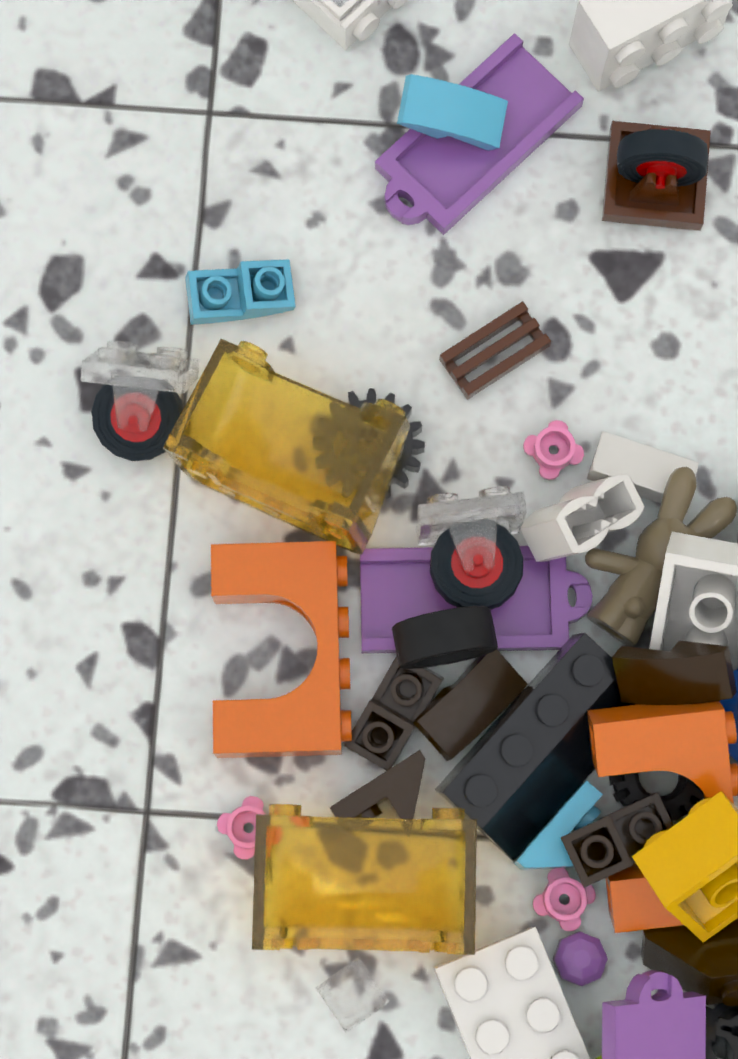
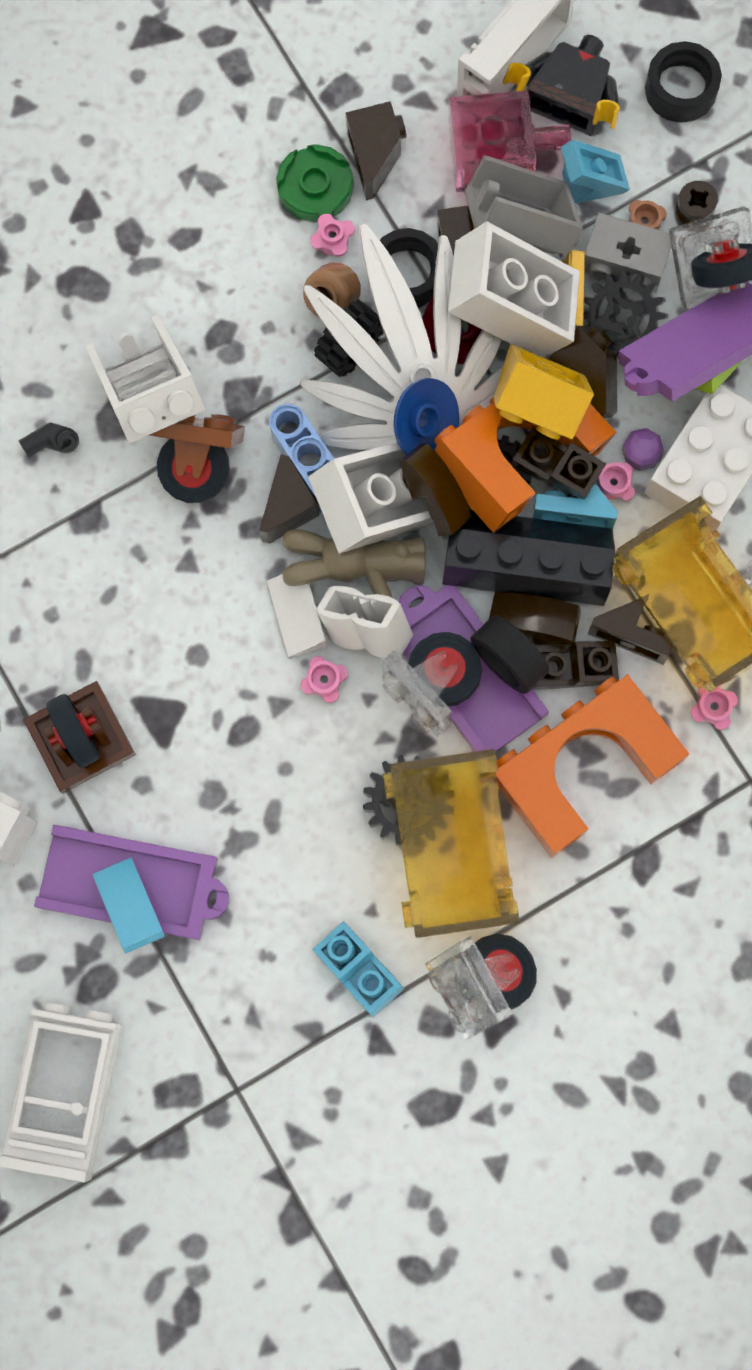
camera: 120 degrees left, 0 degrees up
(529, 327) = (248, 751): reddish brown tile -> none

